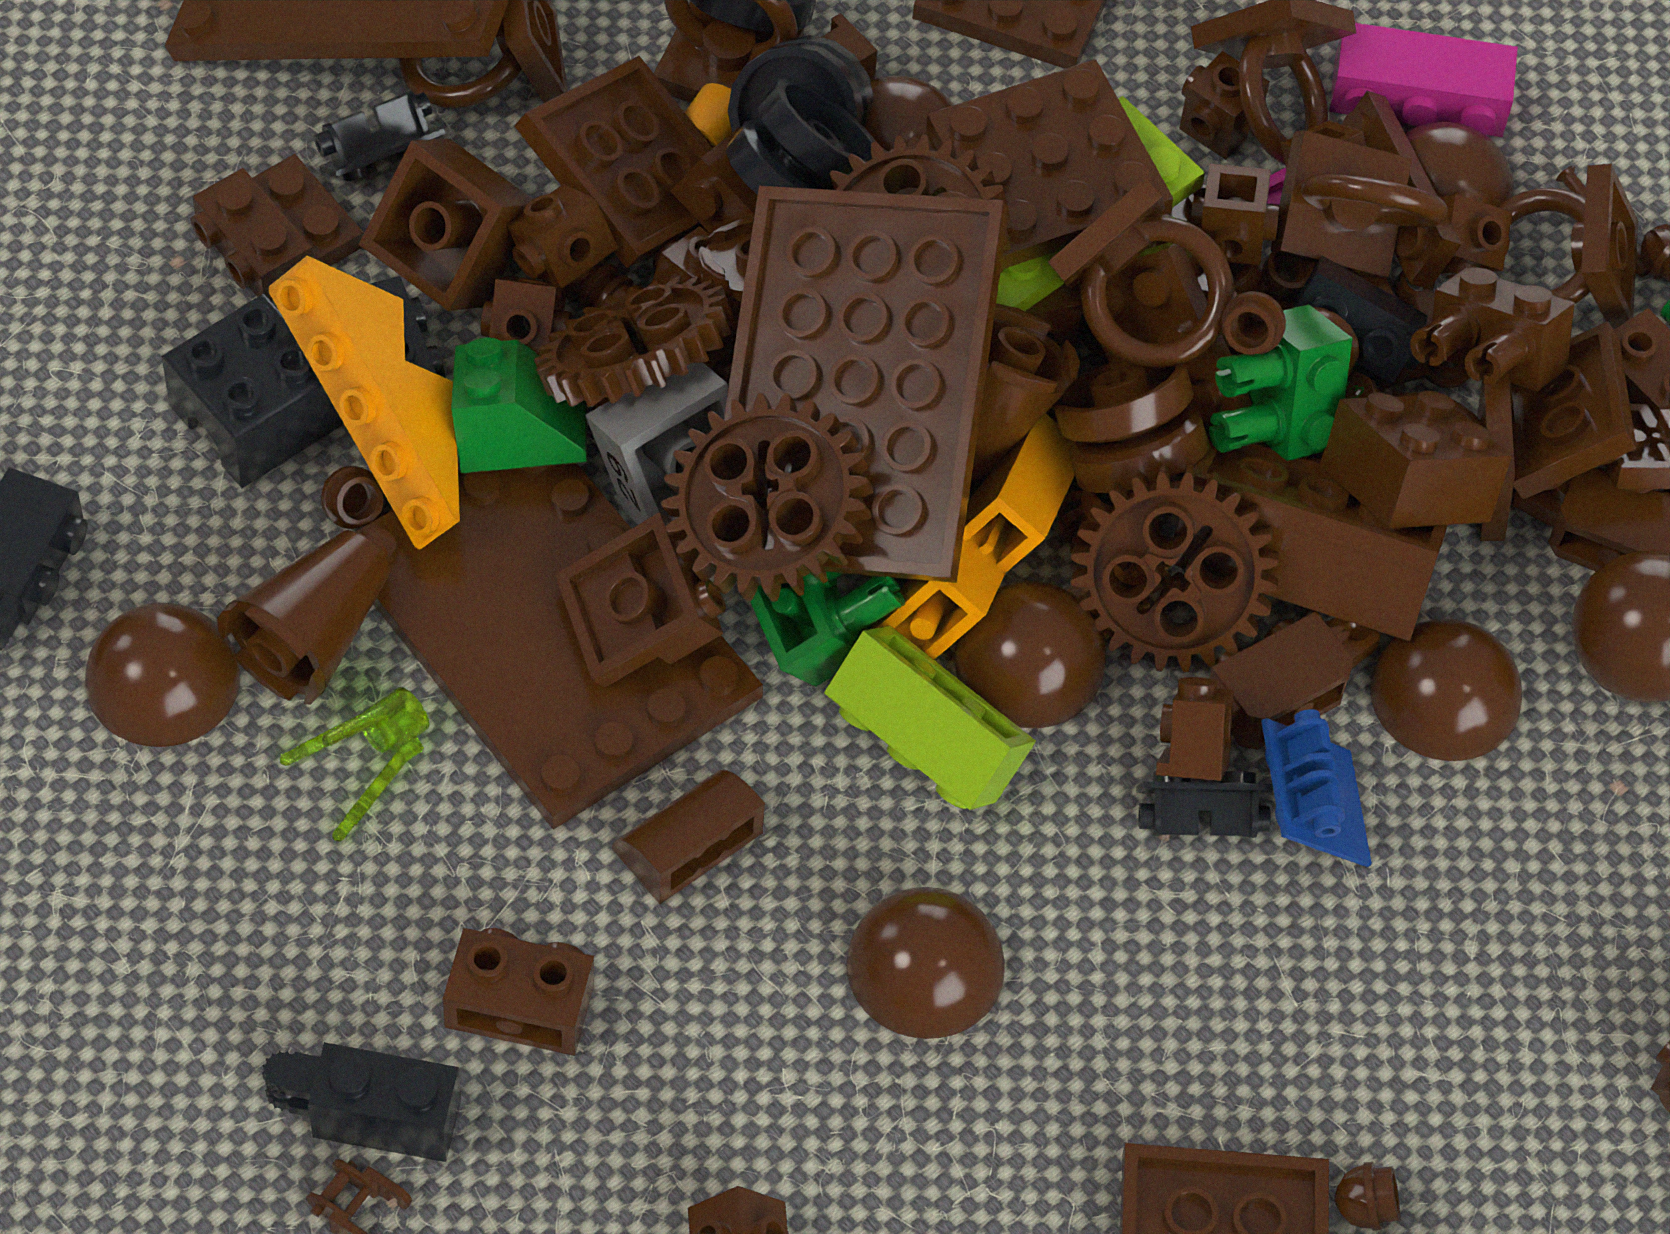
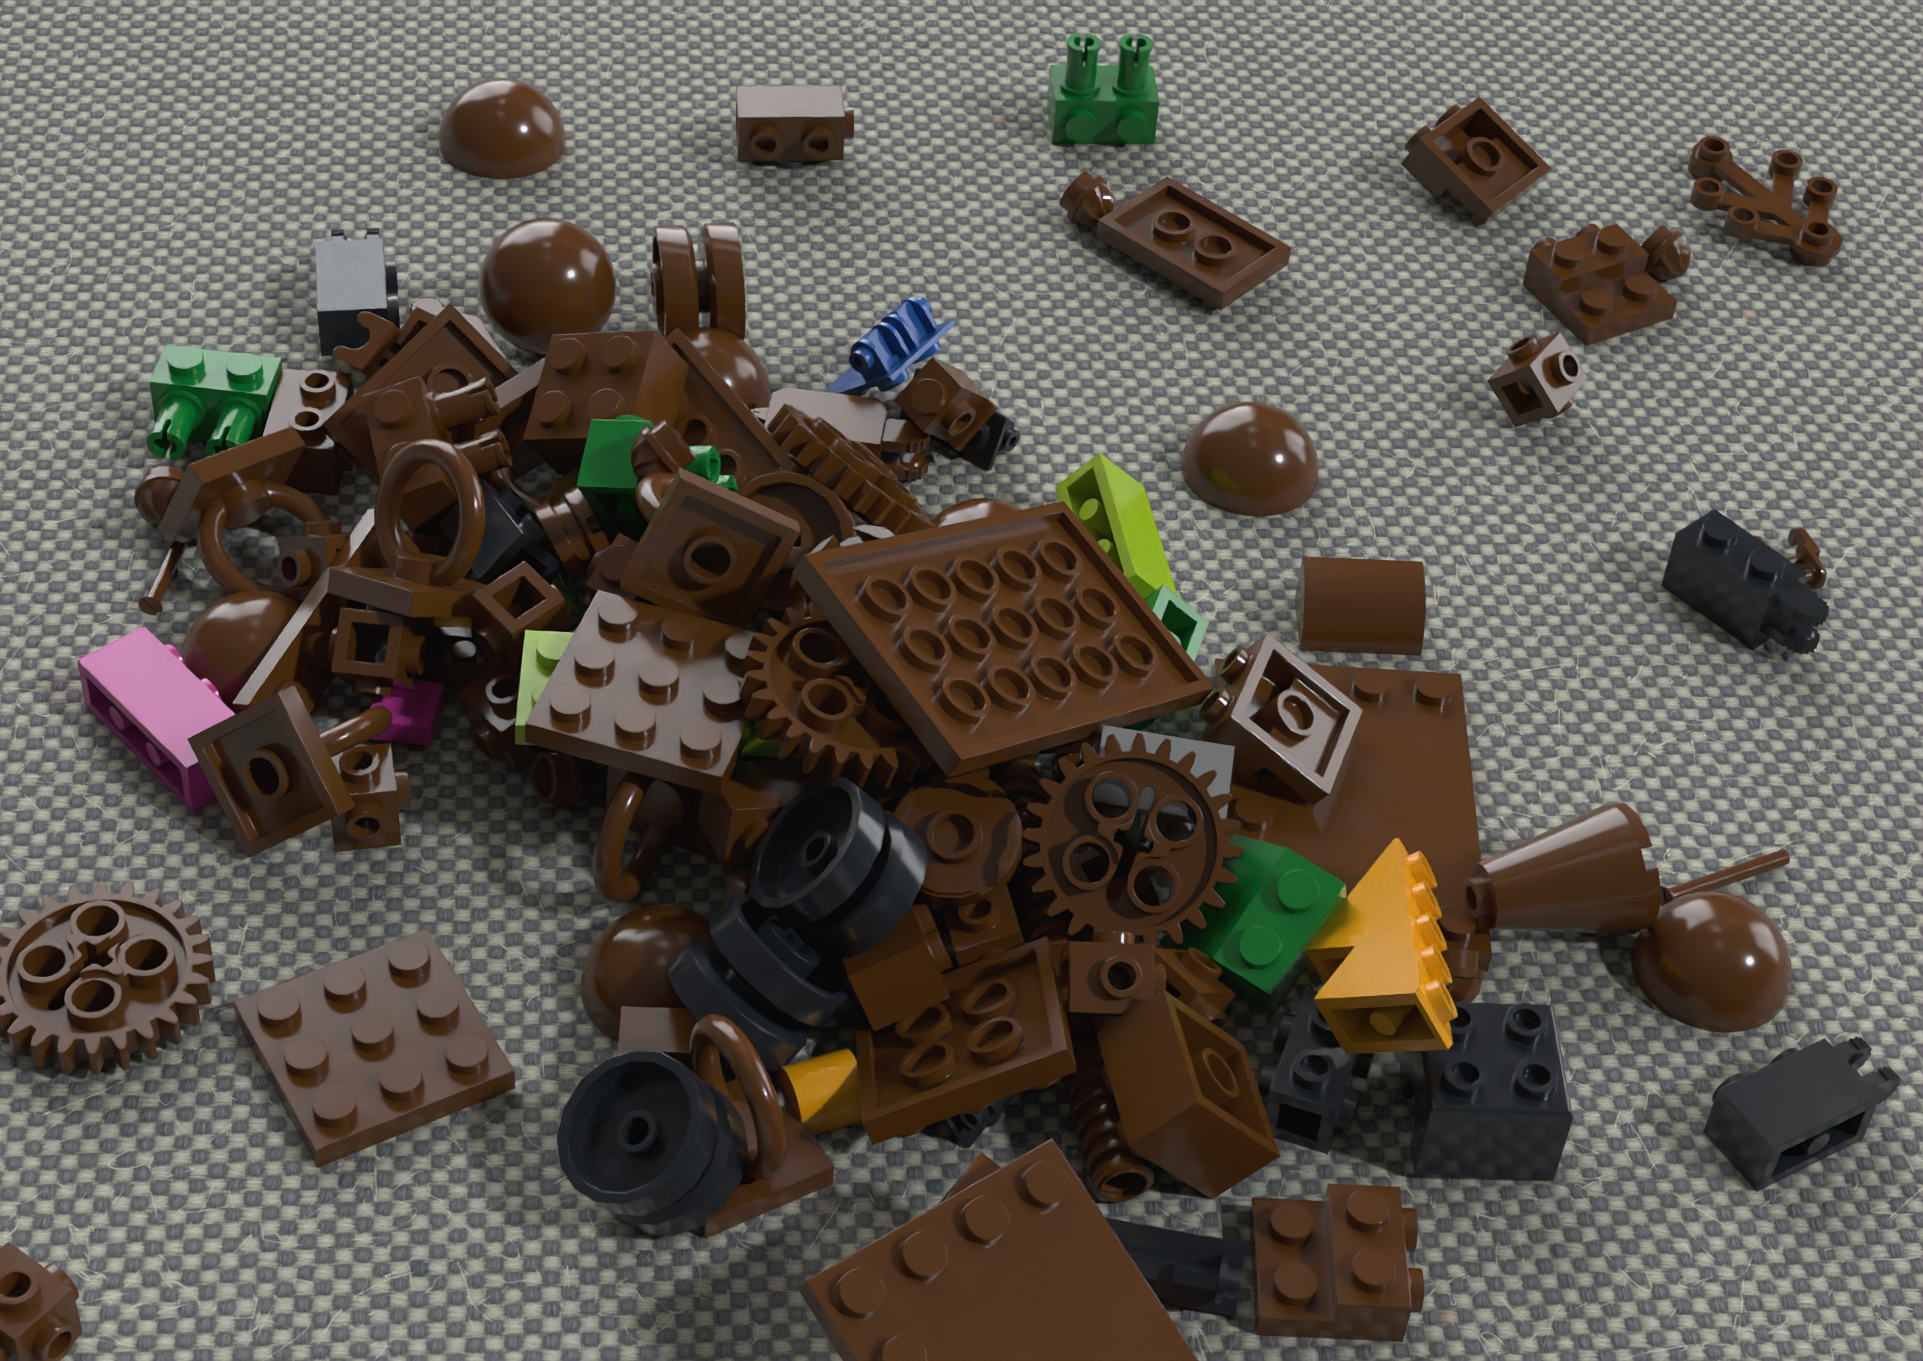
camera: 140 degrees left, 15 degrees down
(201, 770) = (1726, 876): none -> reddish brown piece
(387, 725) = (1546, 796): clear neon green plant -> none
(519, 990) = (1578, 588): reddish brown brick -> none
(822, 488) = (1187, 653): reddish brown gear -> none
(1543, 727) = (705, 286): none -> reddish brown wheel

